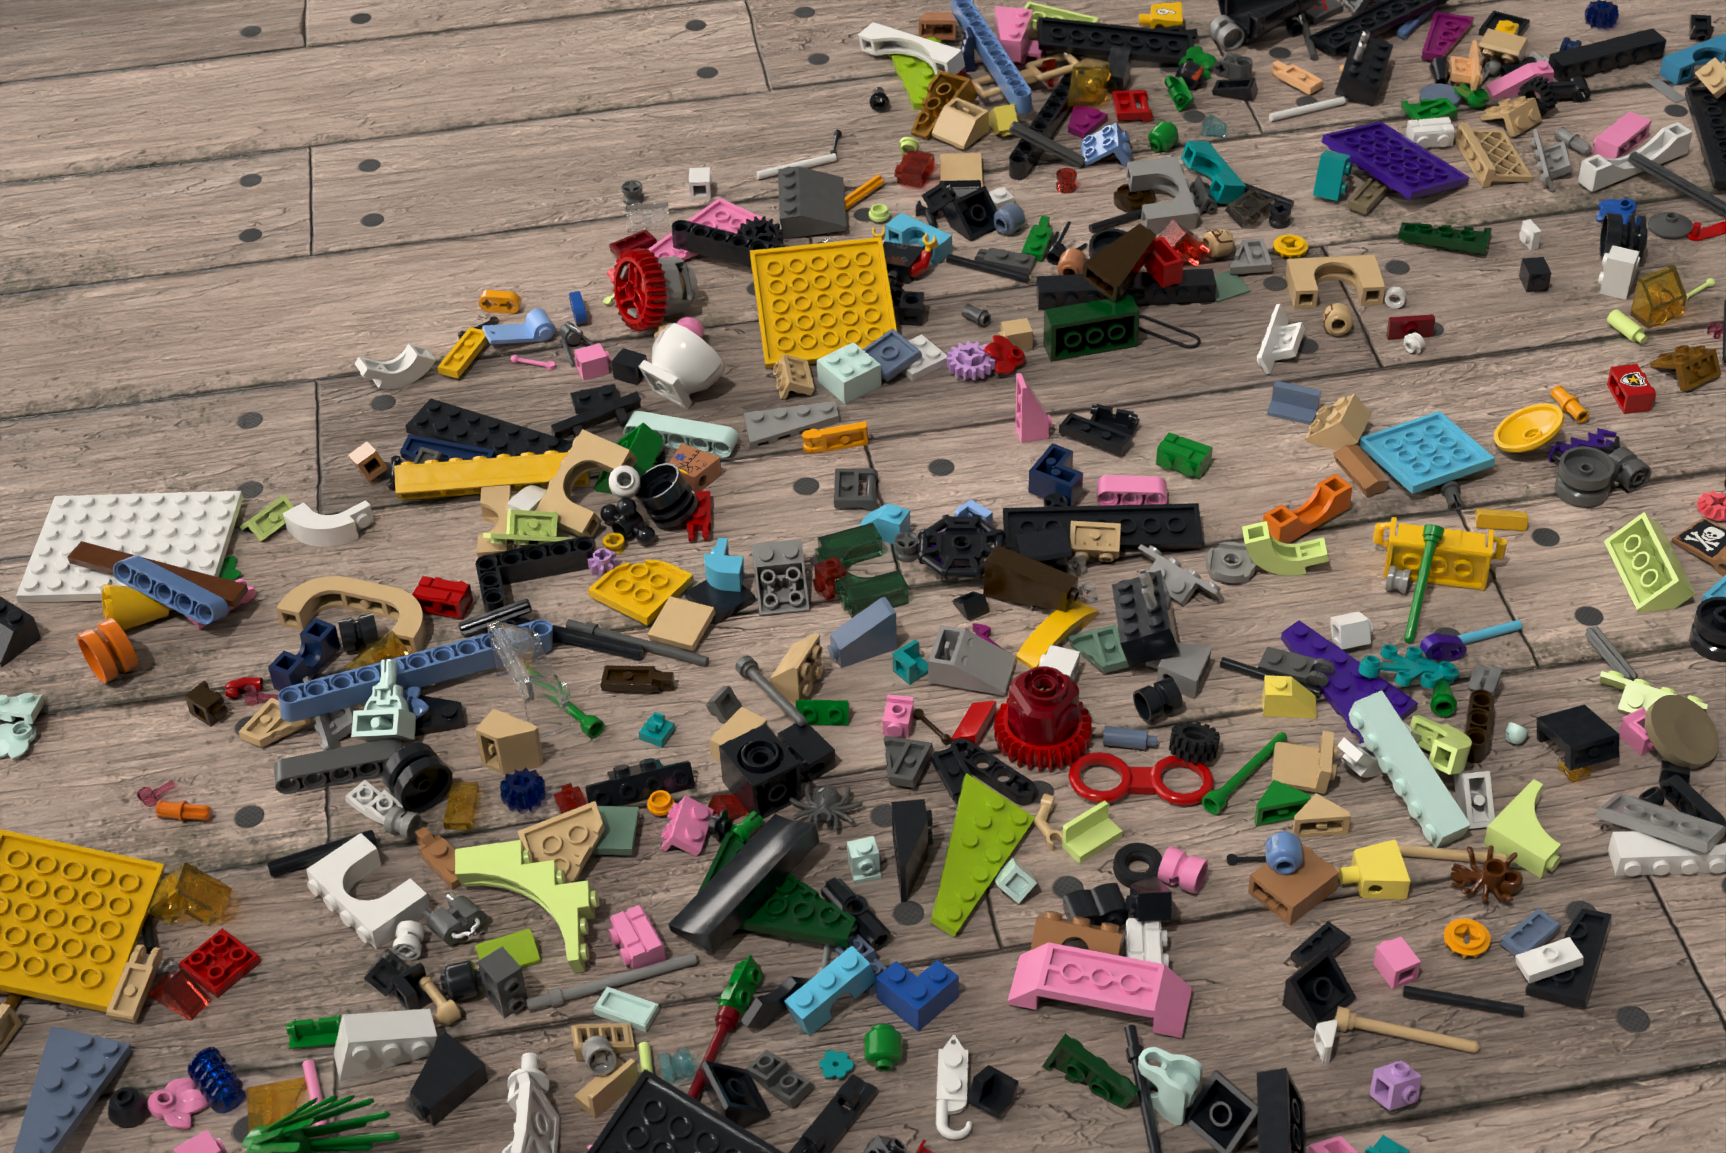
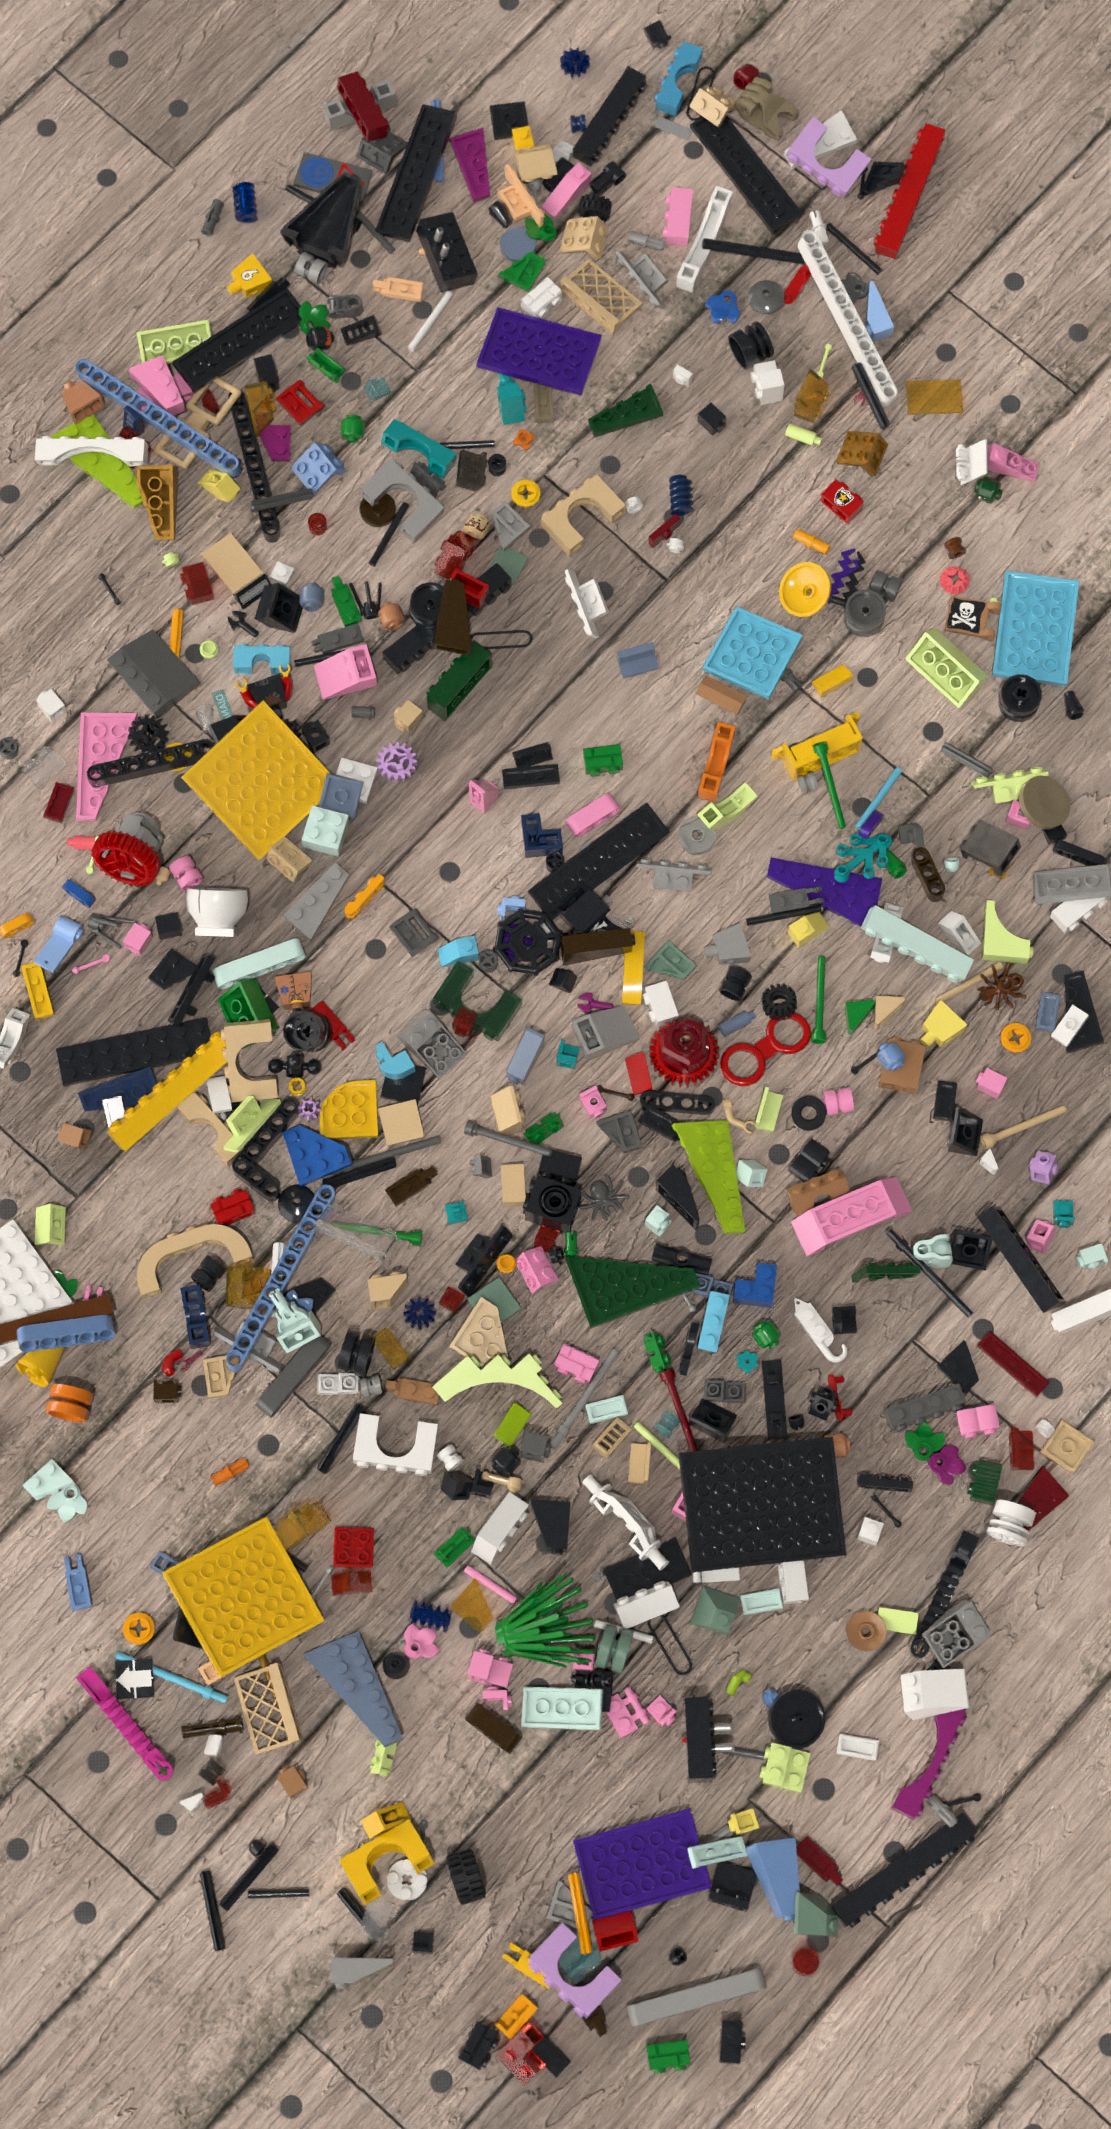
camera: 40 degrees left, 30 degrees up
(134, 985) = (326, 1598): tan hinge -> none
(150, 797) = (197, 1470): clear pink hand -> none
(327, 529) = (99, 1211): white arch -> none
(395, 461) = (82, 1116): black hinge -> none
(452, 923) = (463, 1426): dark grey piece -> none
(501, 614) = (281, 1200): black axle -> none
(567, 599) = (314, 1154): none -> blue plate
(601, 1061) = (625, 1451): light grey wheel -> none
(620, 475) = (283, 1046): white head -> none
(745, 882) = (609, 1286): black arch -> none
(805, 163) = (102, 635): white bar -> none
(879, 100) = (104, 519): black cone -> none
(939, 197) = (247, 609): black bracket -> none
(961, 123) = (194, 512): tan slope -> none
(990, 279) = (345, 672): none -> bright pink slope
(1006, 354) = (415, 743): red plate -> none
(1095, 540) = (606, 878): tan bracket -> none
(1145, 618) = (687, 928): black piece -> none
(1146, 940) = (855, 1169): white brick -> none
(1149, 900) = (840, 1139): black slope -> none
(1306, 766) = (851, 974): tan bracket -> none
(1324, 211) = (524, 434): none -> orange plate
(1337, 319) = (611, 556): tan head -> none
(1339, 423) = (680, 662): tan slope -> none
(1351, 630) = (809, 847): white brick -> none
(1447, 744) = (926, 905): yellowish green arch -> none
(1452, 308) = (680, 495): none -> dark blue piece
(1463, 1001) = (1039, 1082): black bar -> none
(1653, 796) = (1053, 860): black hinge -> none

